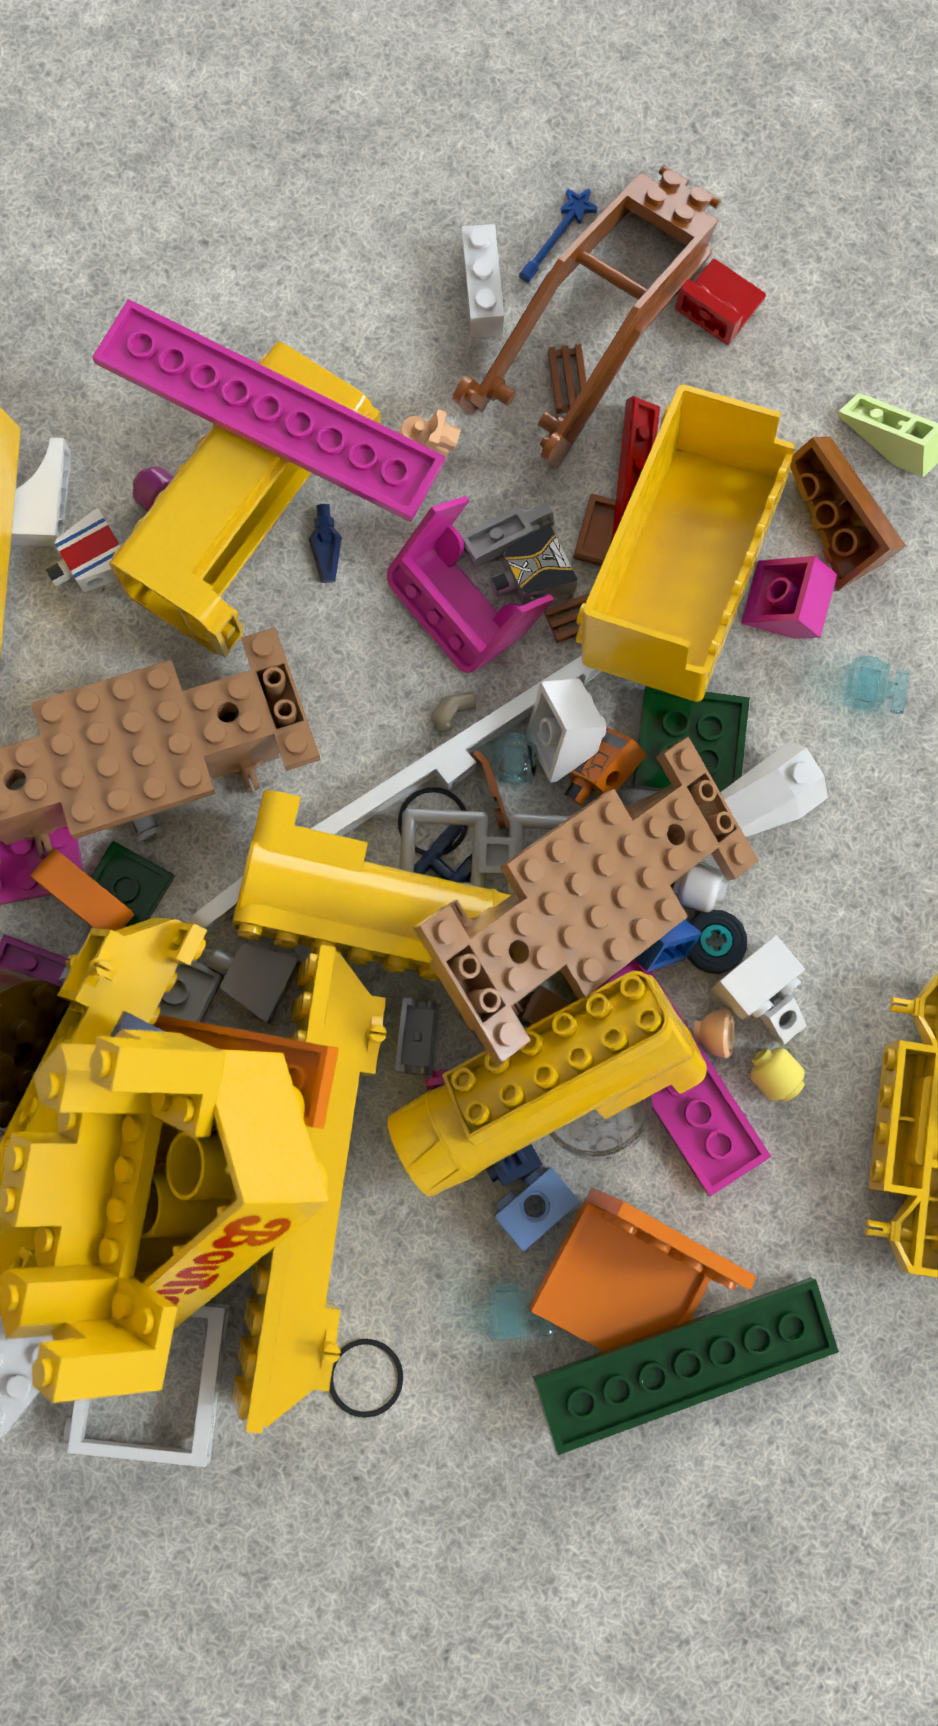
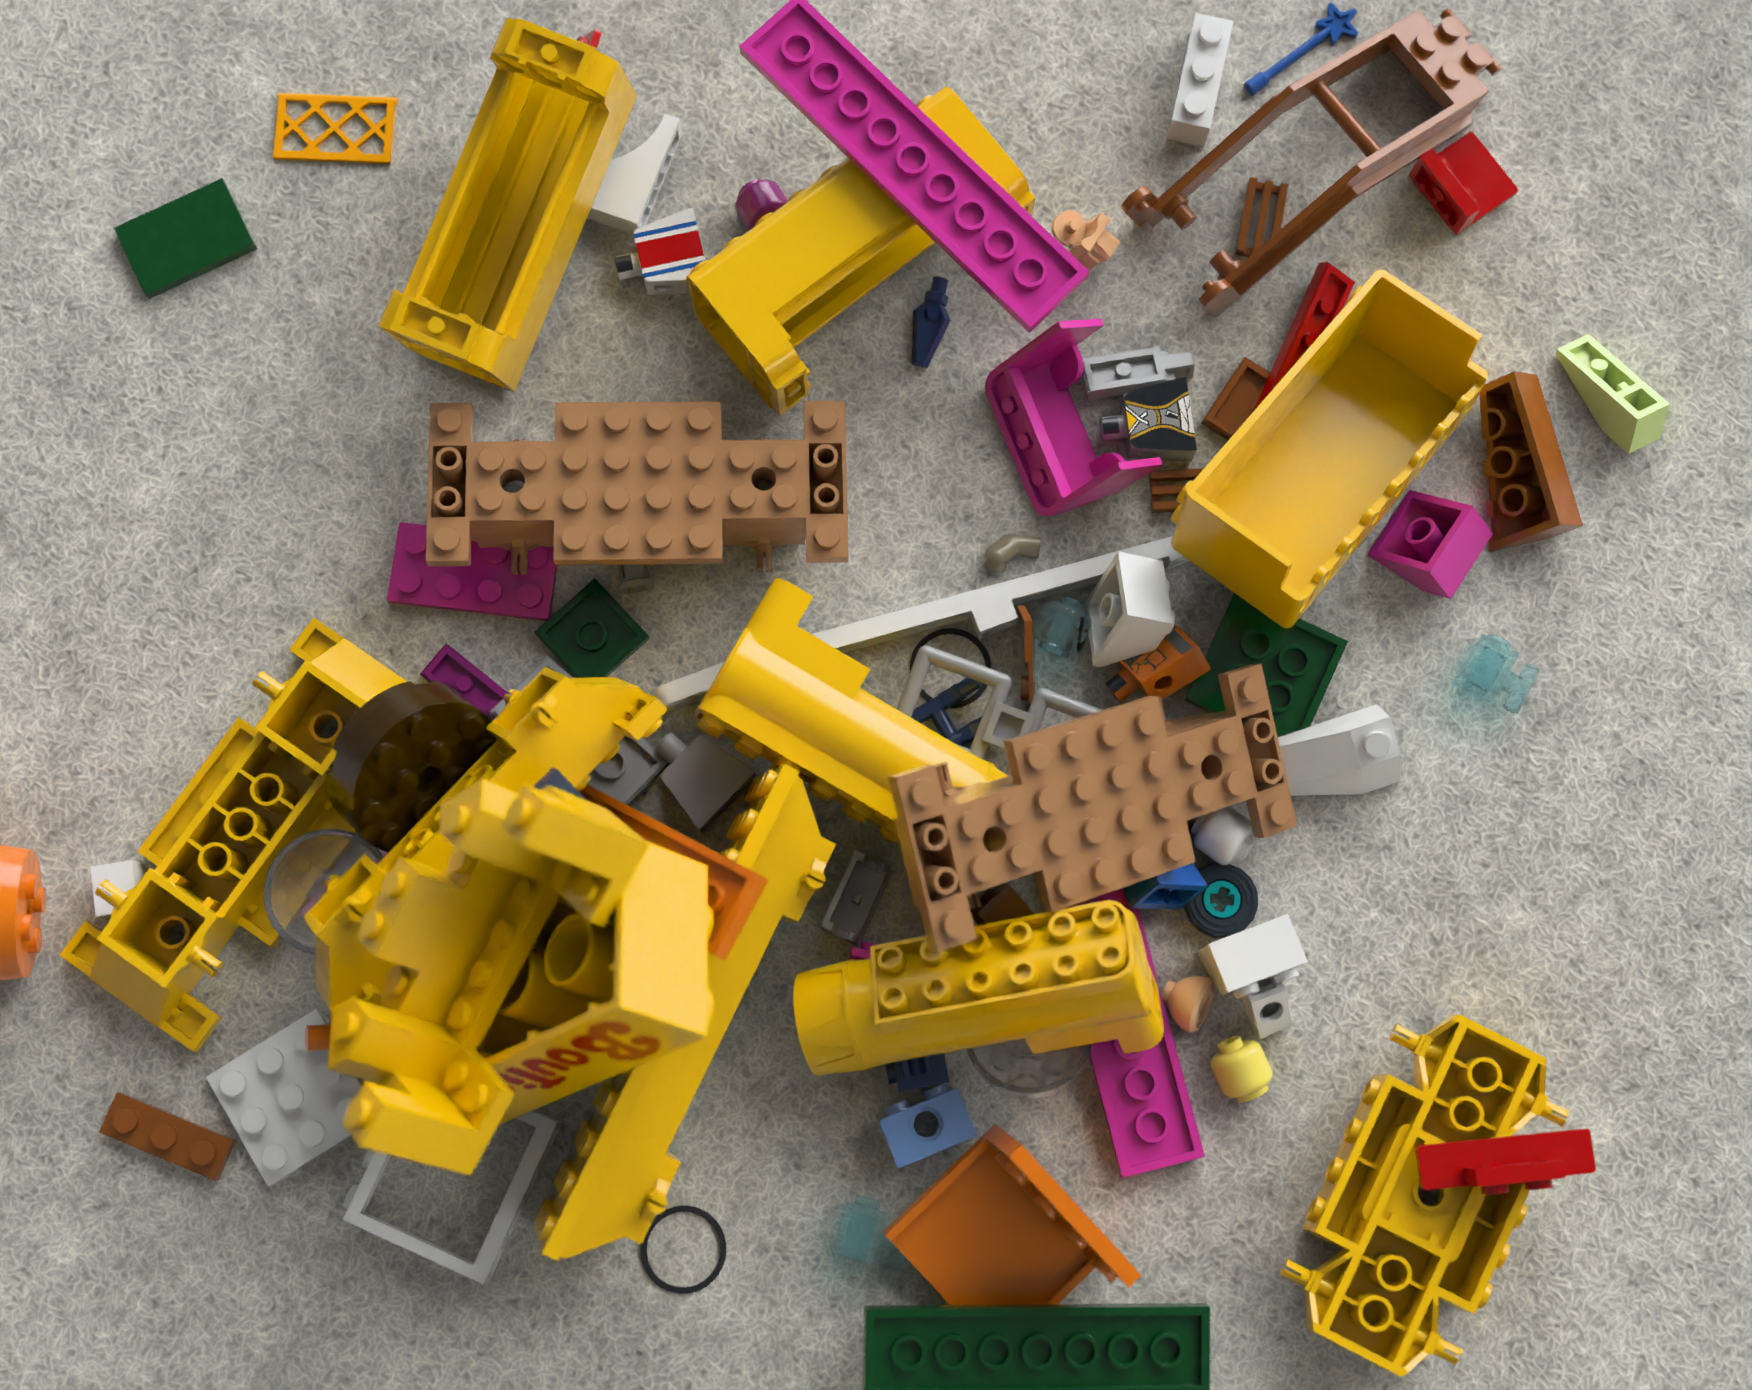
camera: 20 degrees right, 0 degrees up
(80, 893) = (543, 625): orange beam -> none

